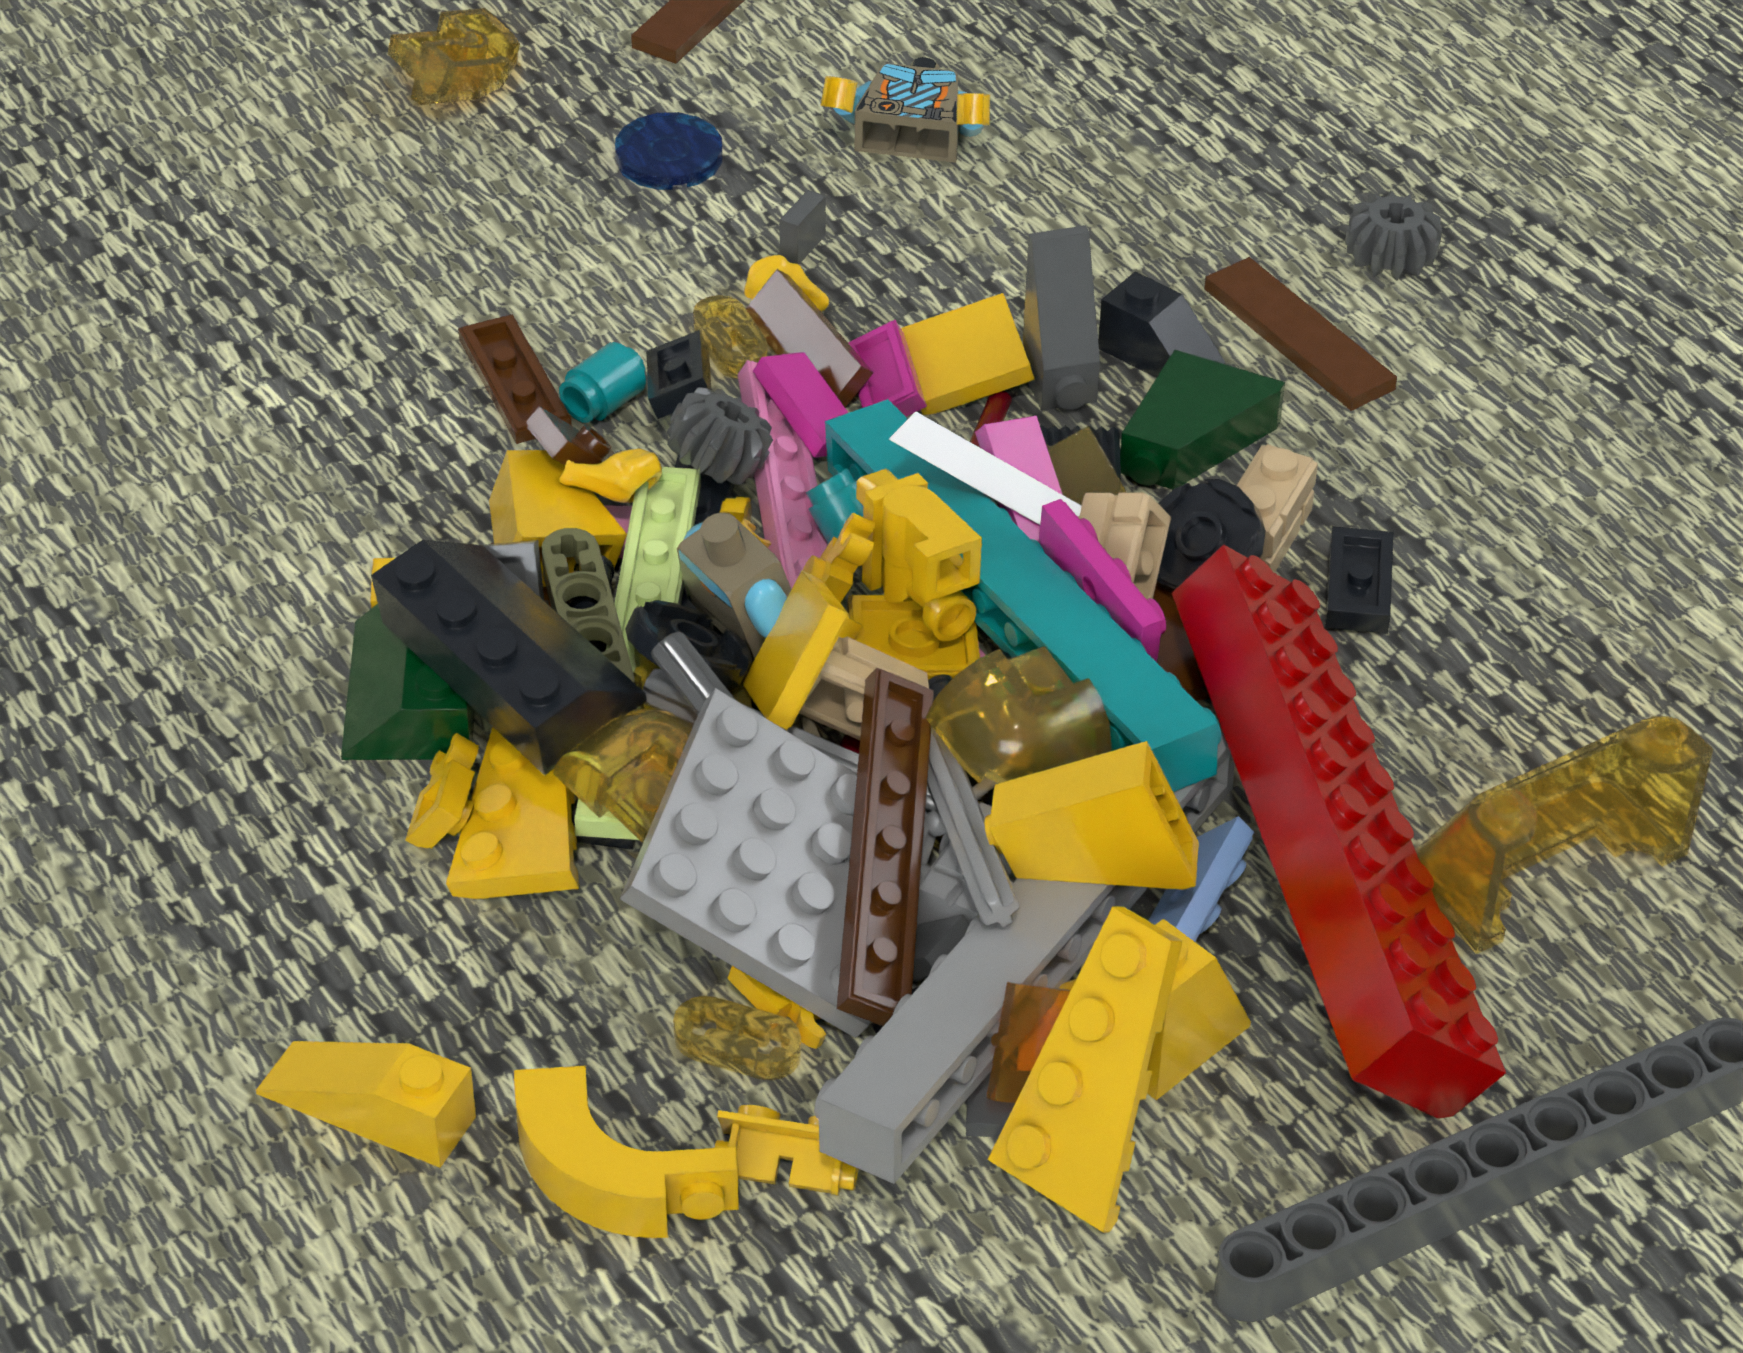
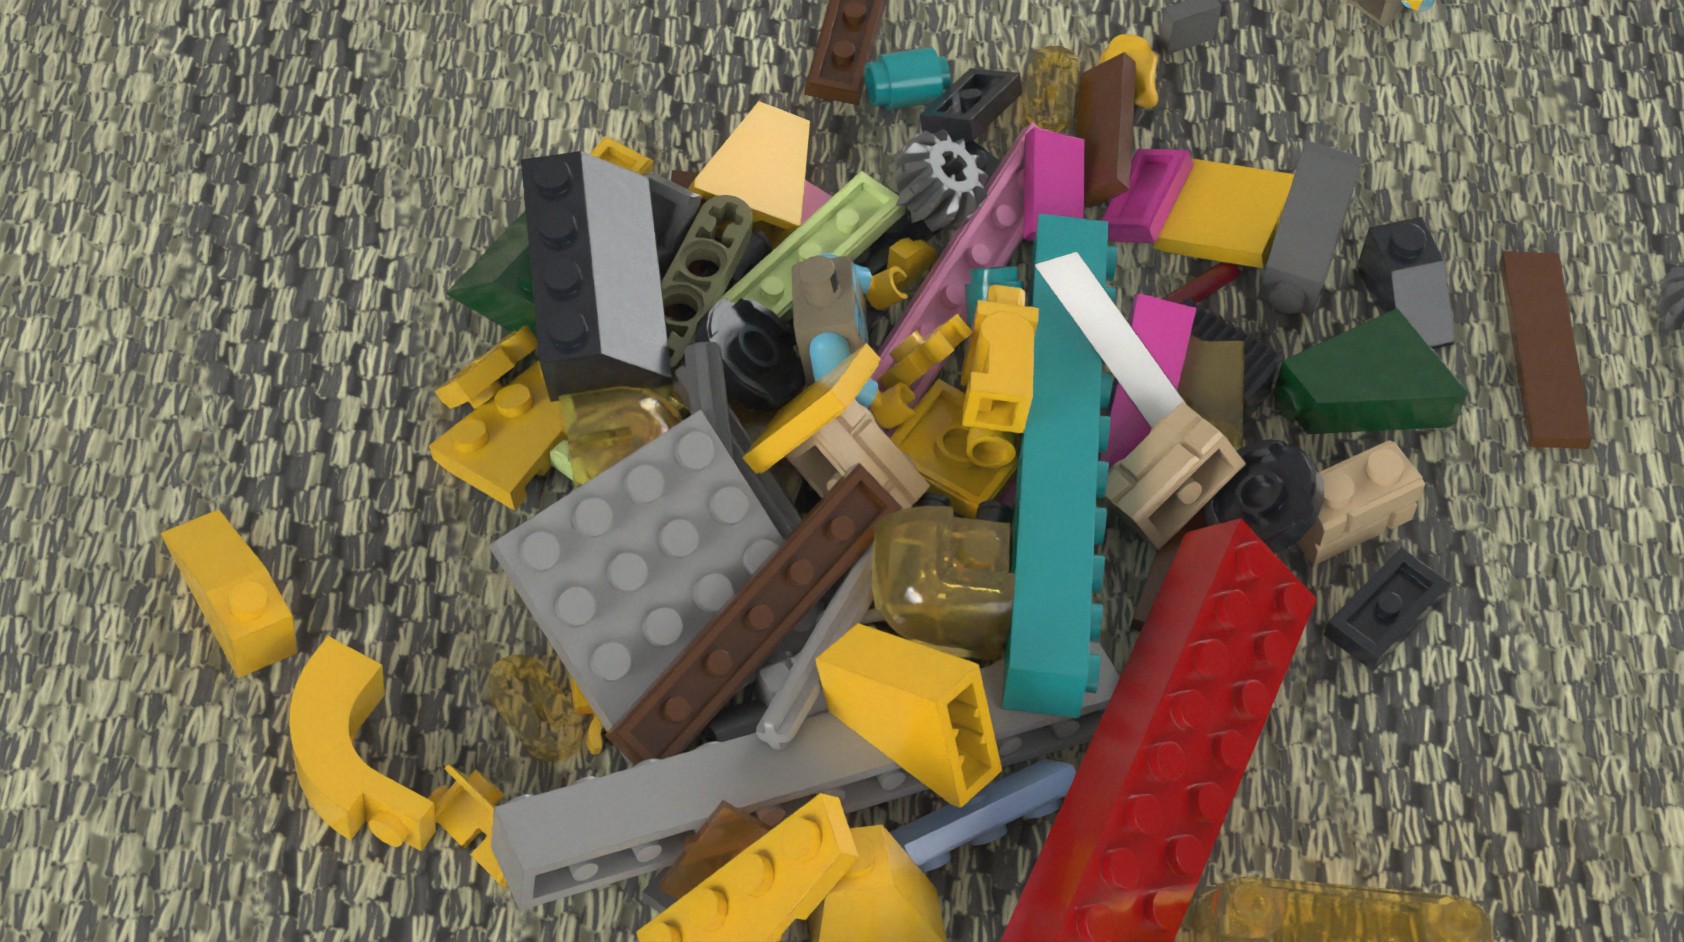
camera: 30 degrees right, 10 degrees up
(566, 442) = (826, 132): reddish brown plate -> none
(616, 476) = (827, 171): yellow animal -> none
(1105, 580) = (1125, 491): dark pink tile -> none

